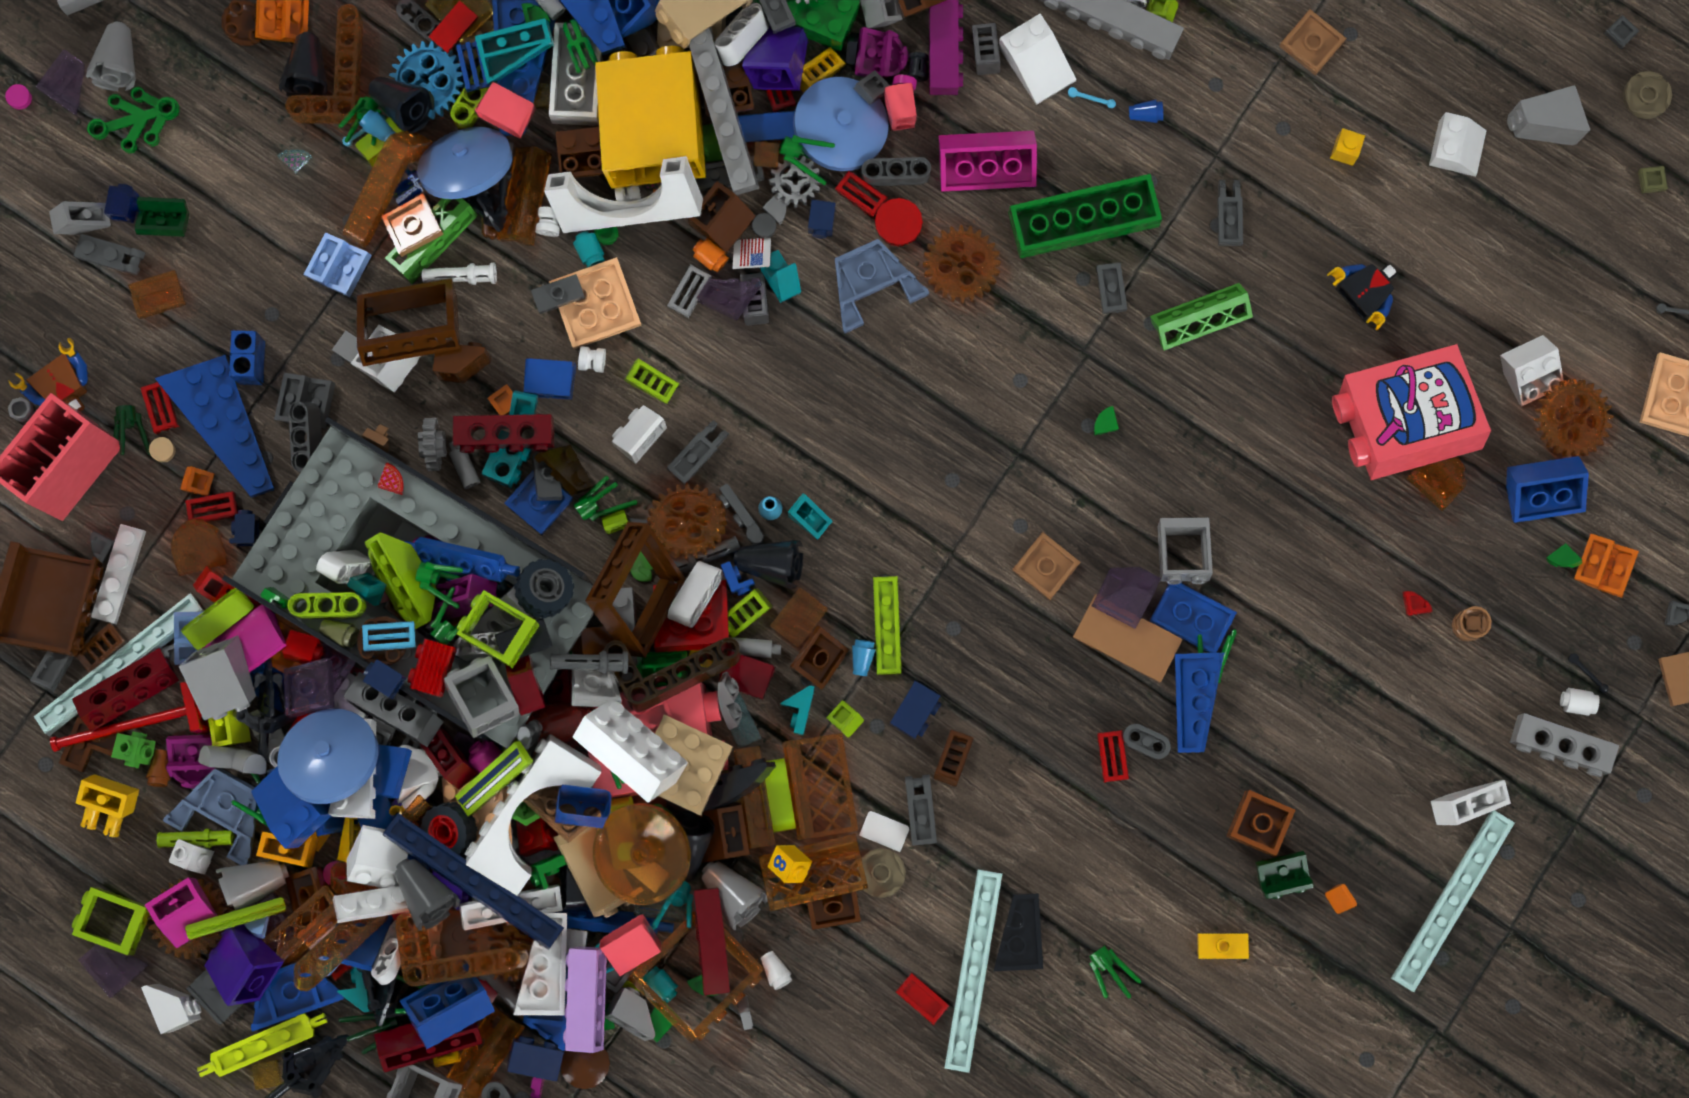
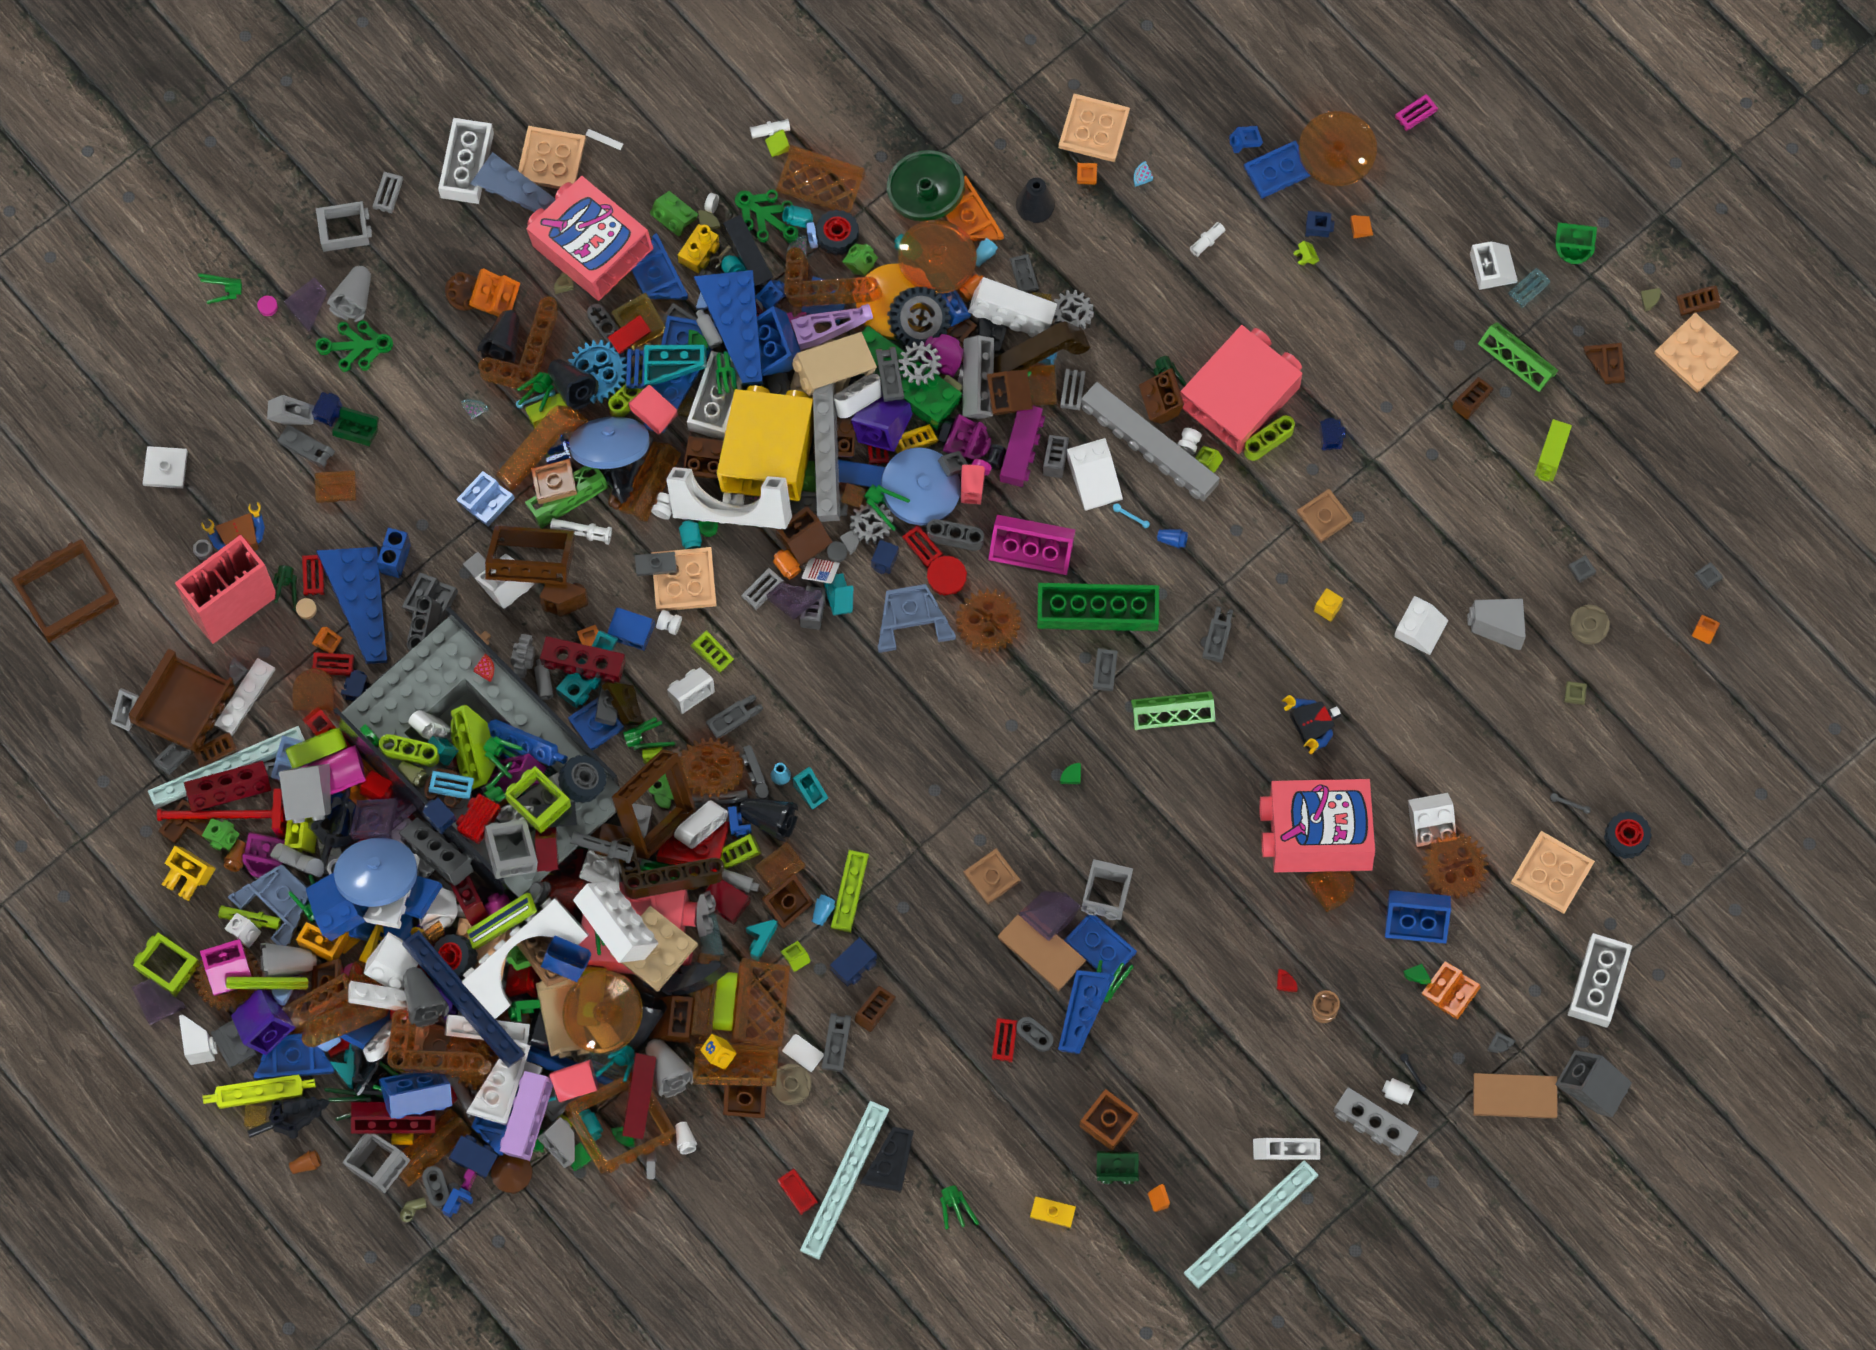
camera: 15 degrees right, 10 degrees down
(376, 126) = (546, 396): dark azure cone -> none

